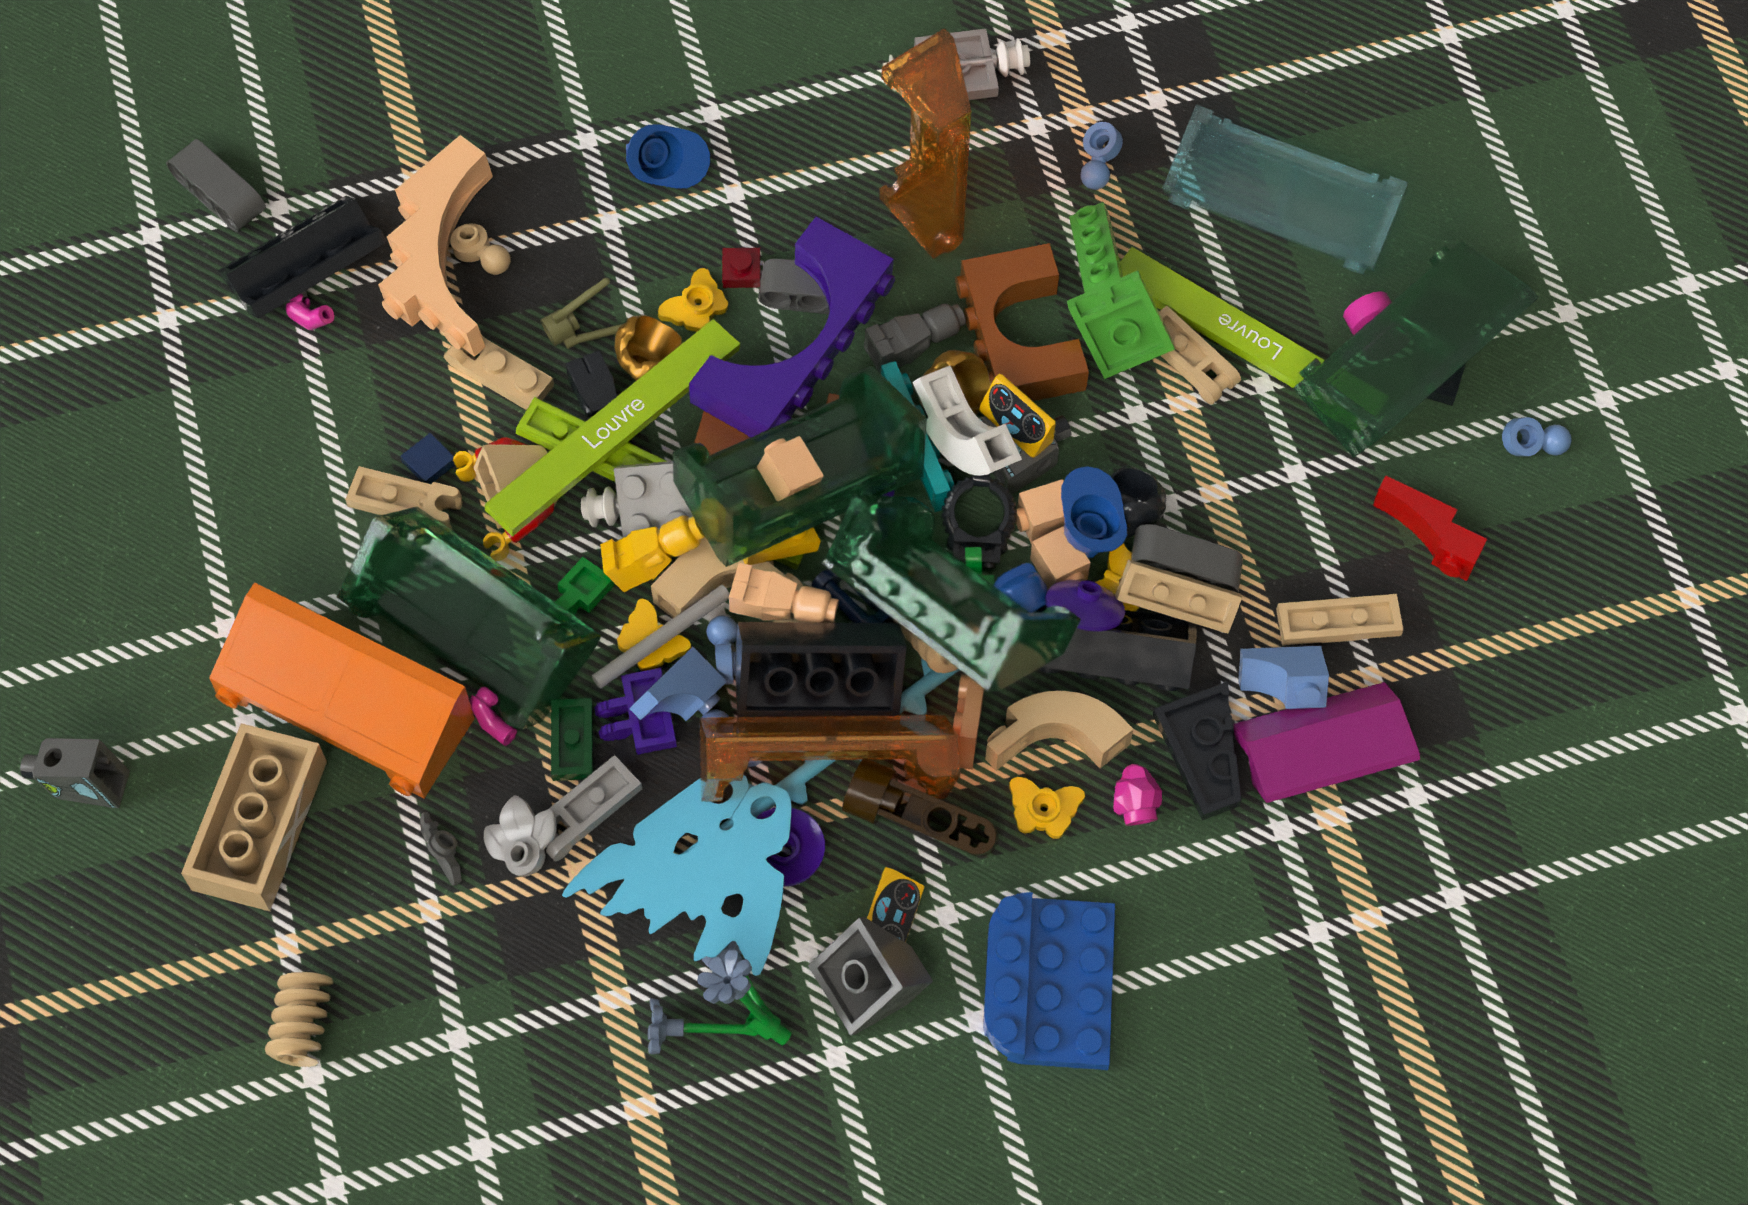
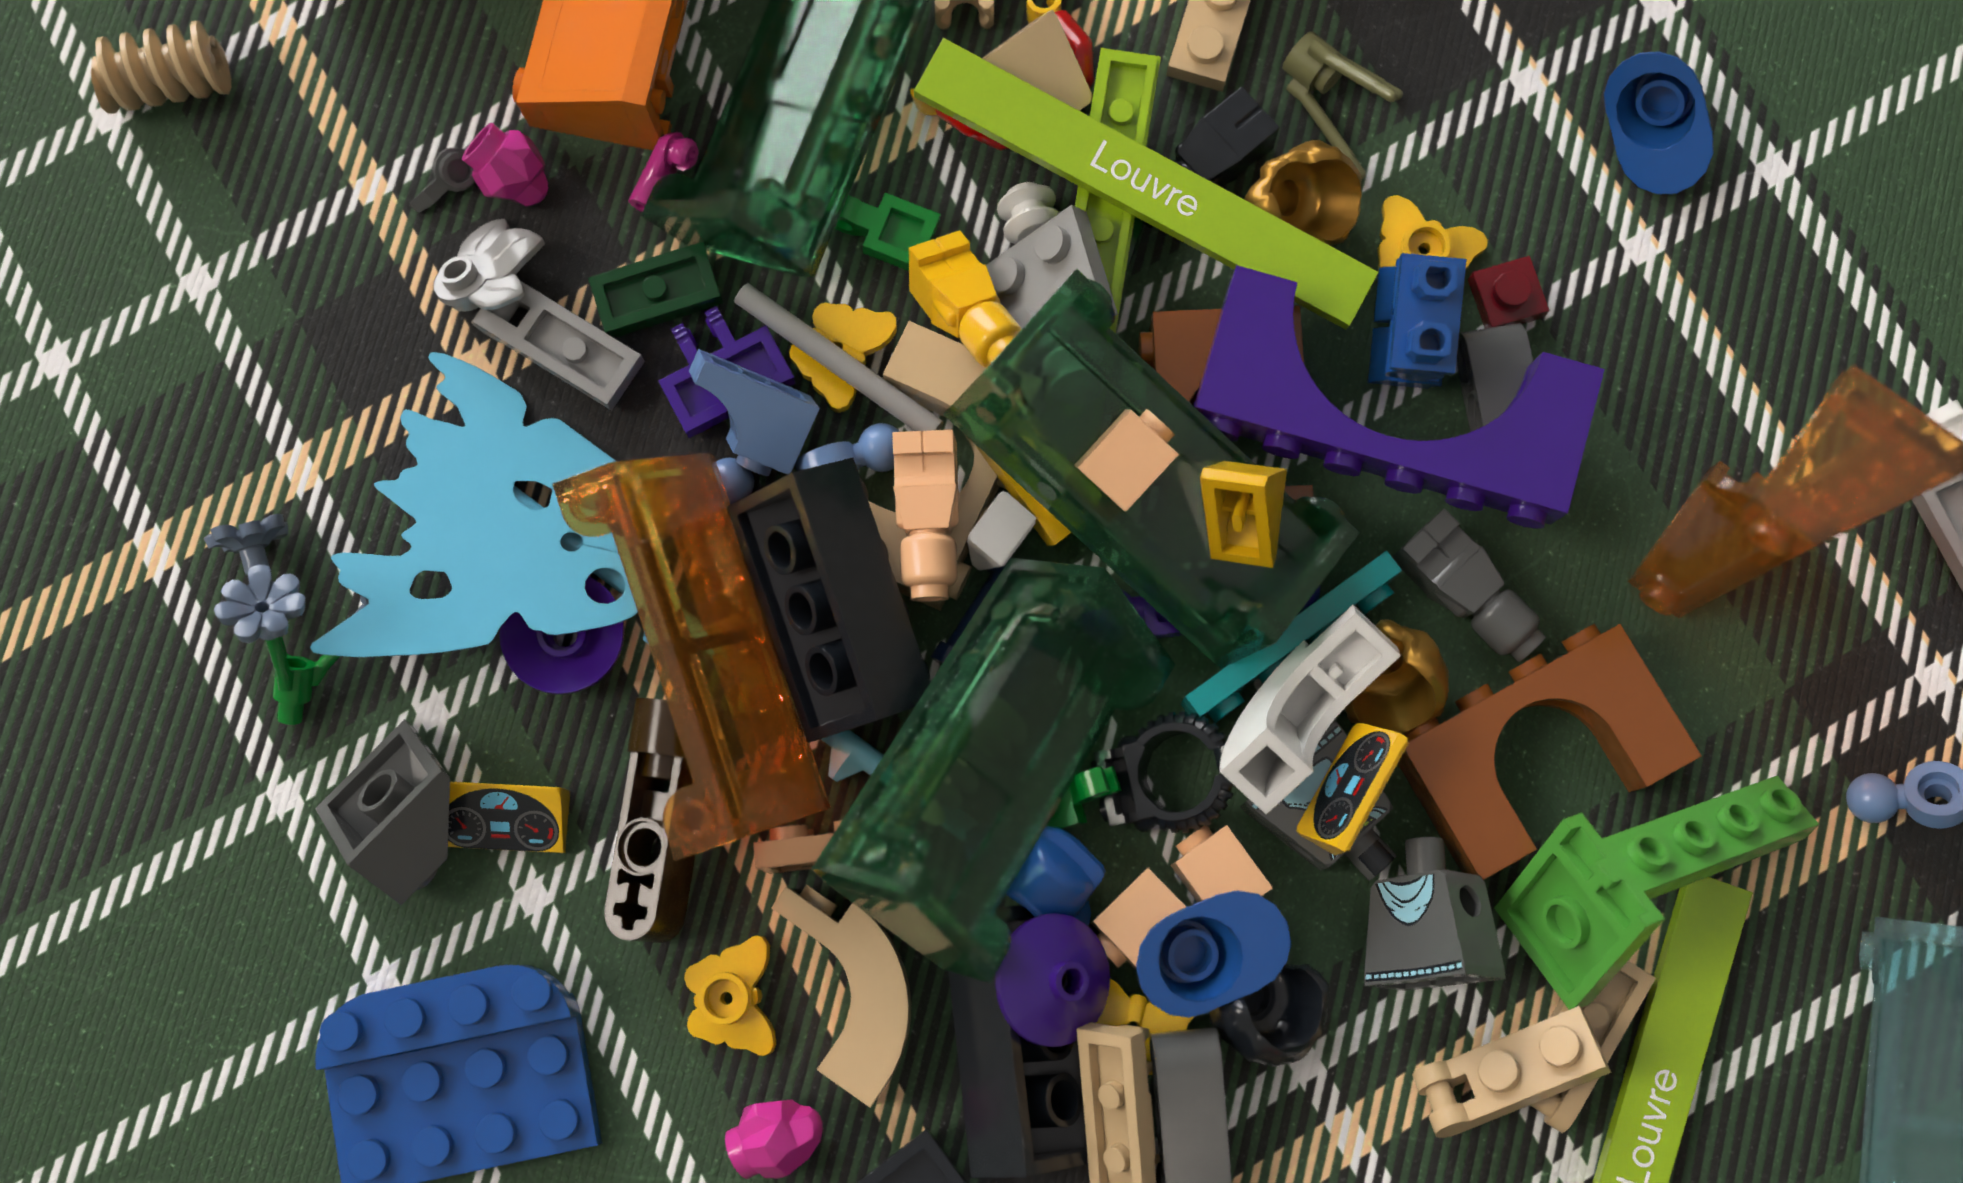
camera: 80 degrees right, 15 degrees up
(453, 807) = (507, 166): none -> dark pink rock
(752, 297) = (1424, 309): none -> blue hips
(804, 566) = (999, 532): none -> white slope
(840, 420) = (1243, 511): none -> yellow slope
(1107, 405) = (1430, 925): none -> dark grey torso
(1200, 389) = (1512, 1072): none -> tan plate

